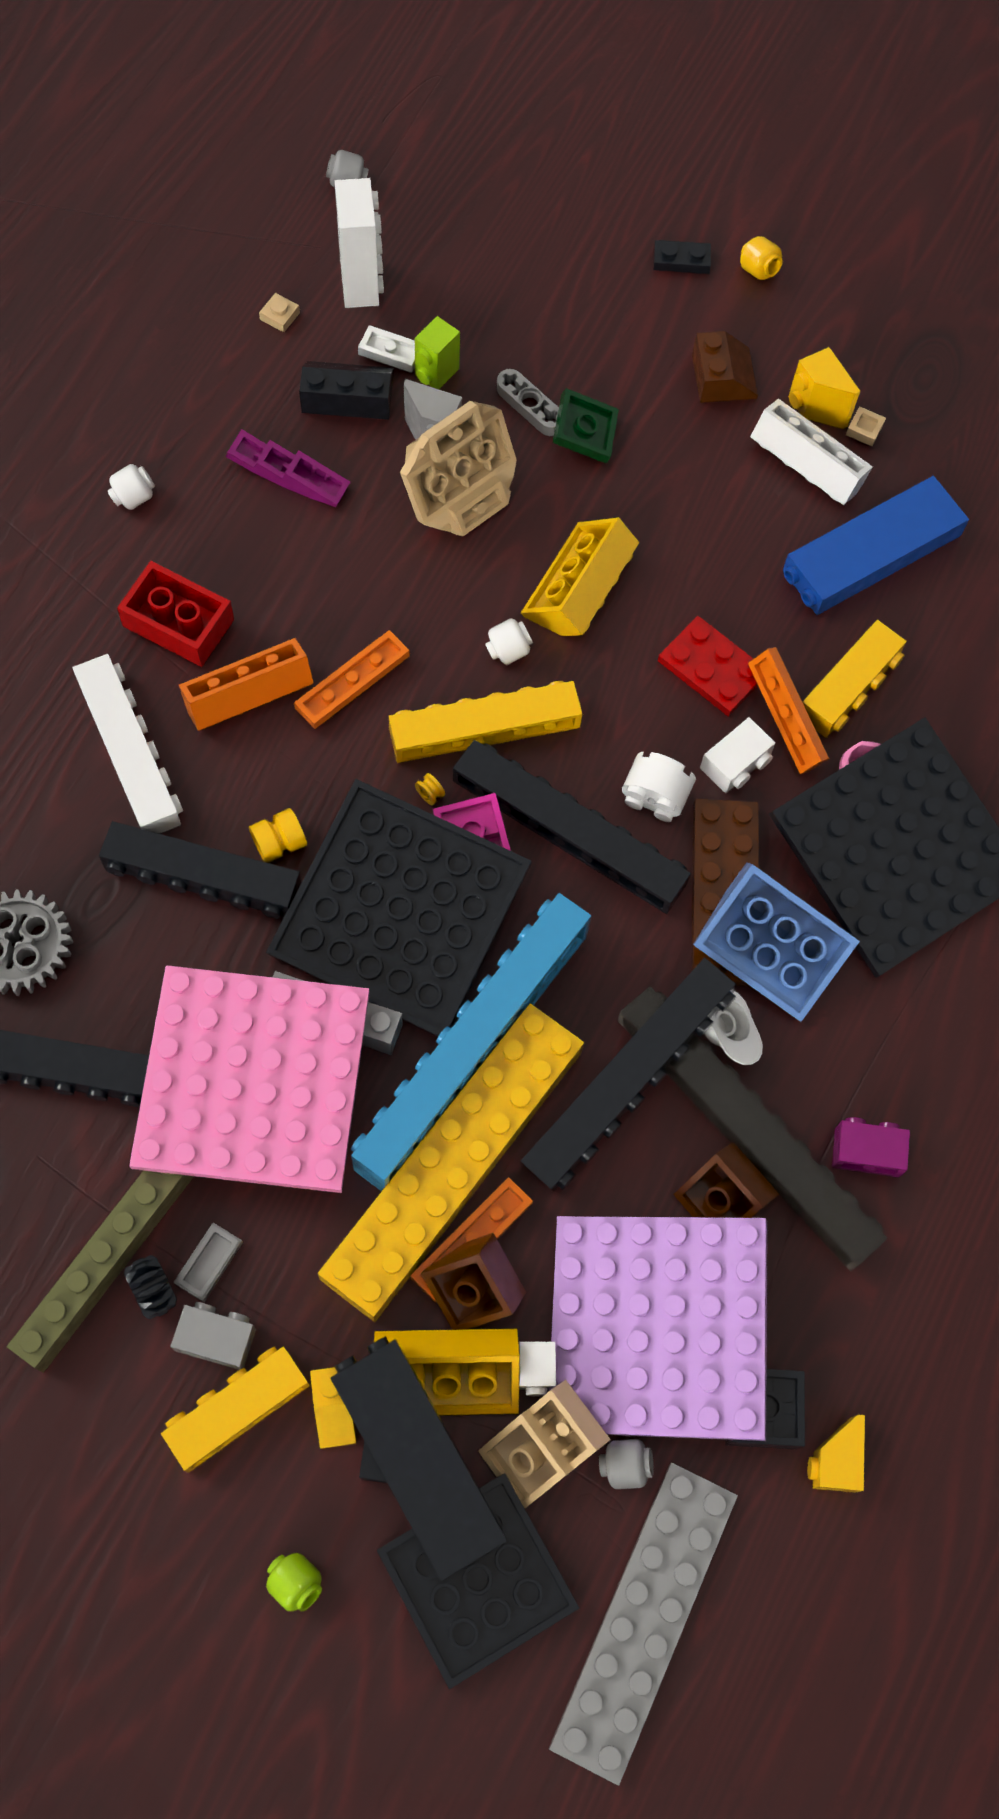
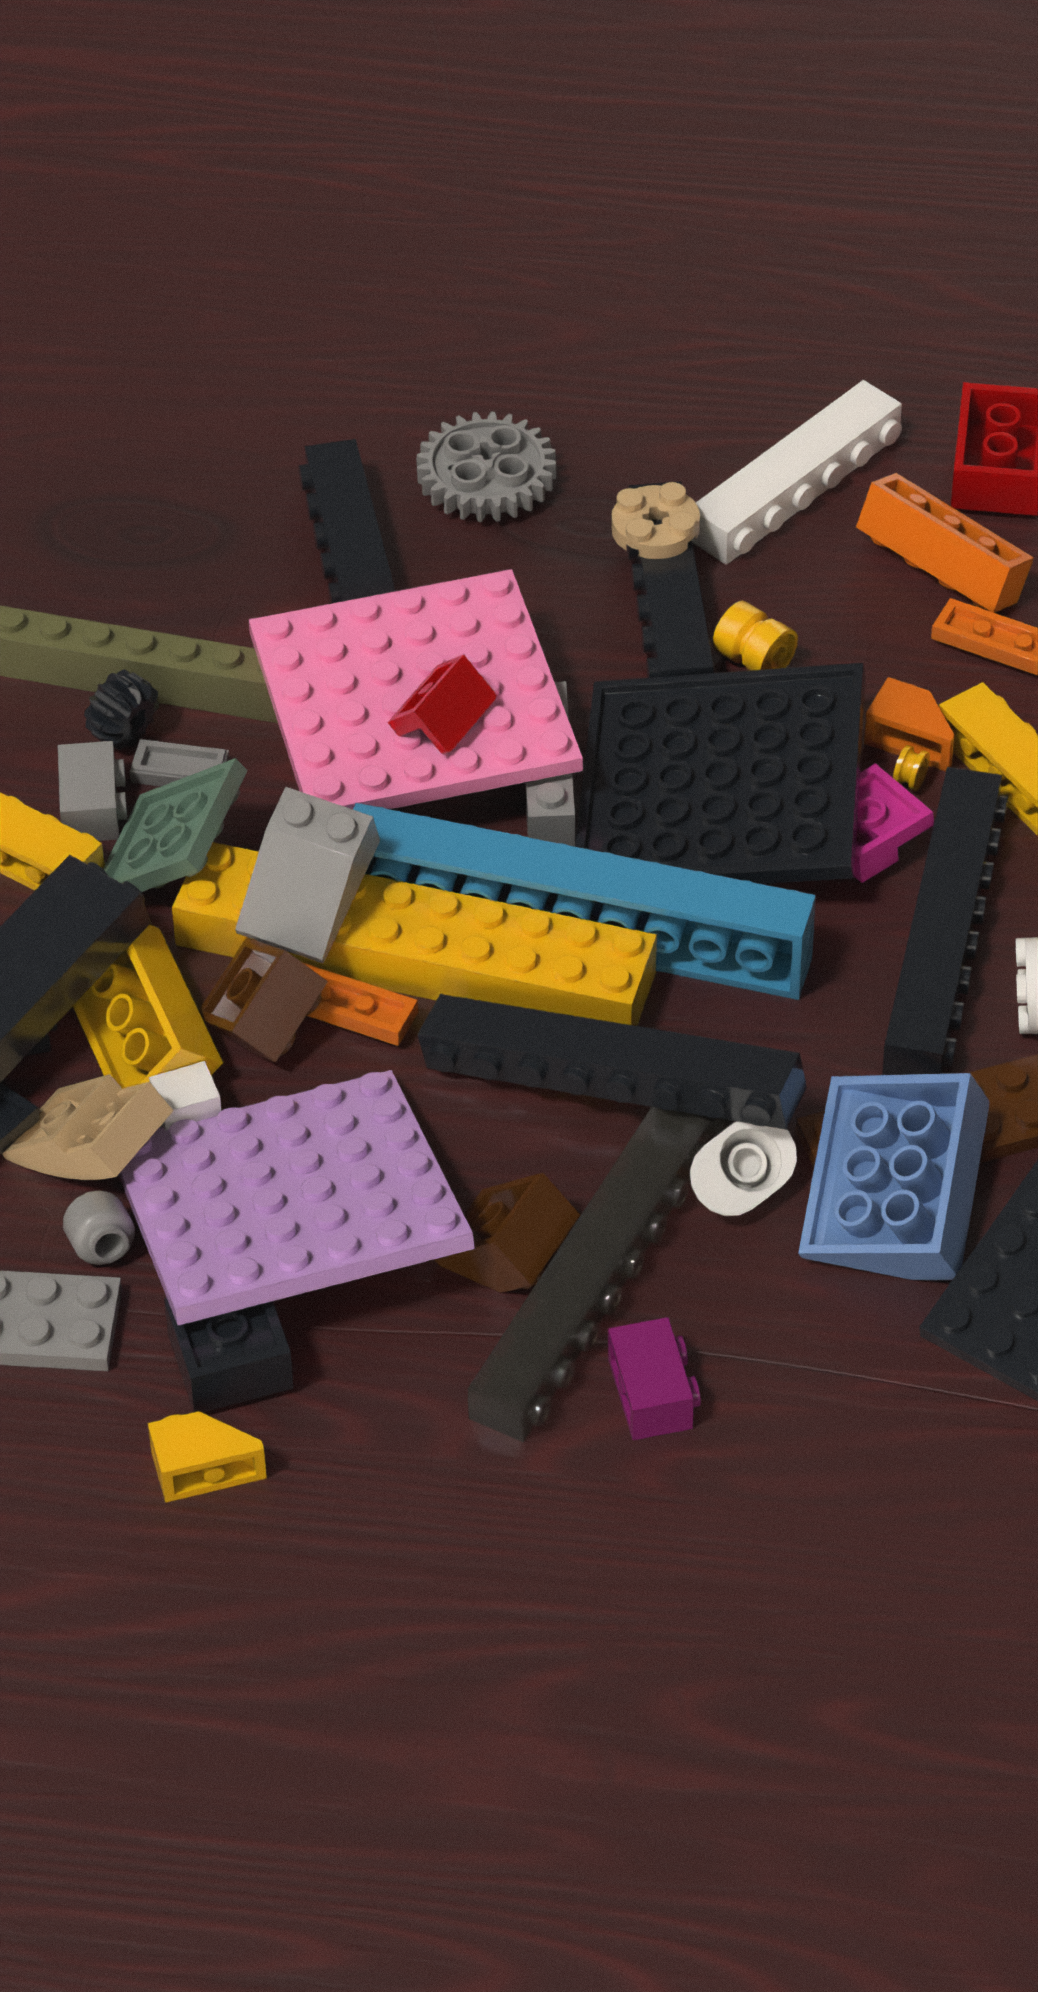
camera: 75 degrees right, 20 degrees down
(139, 837) = (638, 507): none -> tan plate
(292, 1062) = (445, 704): none -> red panel
(297, 1294) = (174, 827): none -> sand green plate
(394, 770) = (910, 717): none -> orange slope
(408, 1213) = (307, 874): none -> light grey slope

